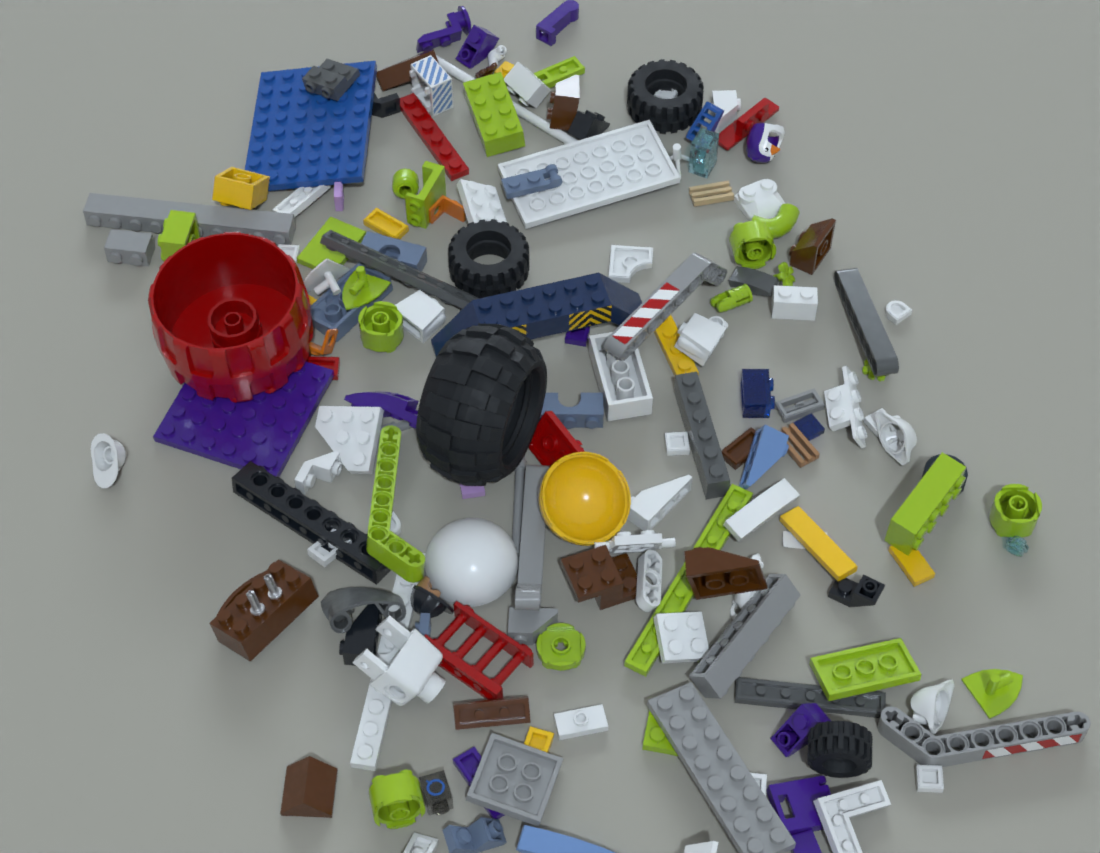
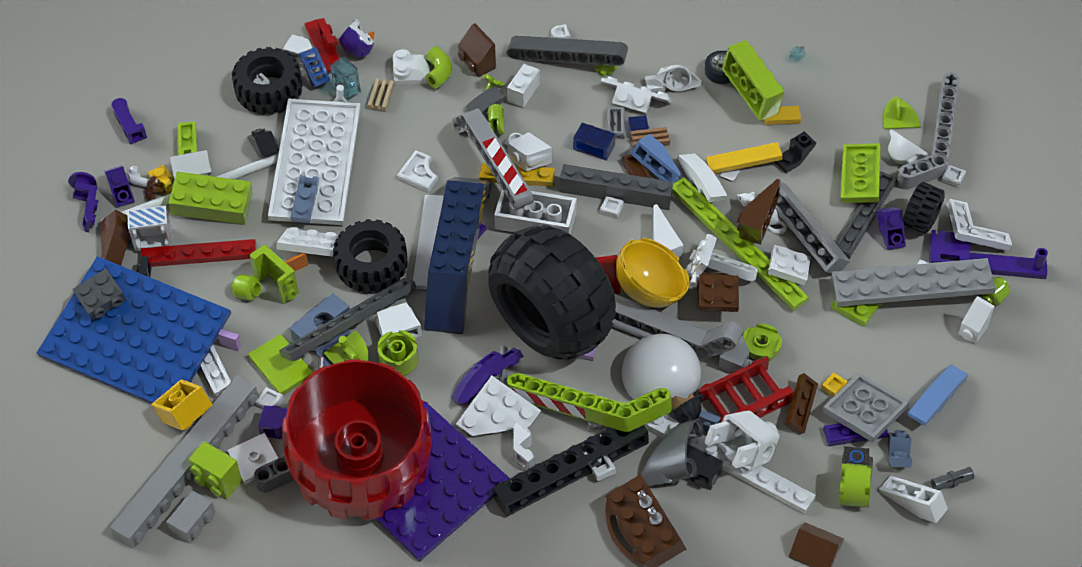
camera: 65 degrees left, 0 degrees up
(385, 224) = (279, 318): yellow tile -> none
(564, 103) = (239, 143): reddish brown slope -> none
(580, 722) = (829, 354): white plate -> none
(752, 244) = (455, 86): lime brick -> none
(1015, 511) = (772, 40): lime brick -> none

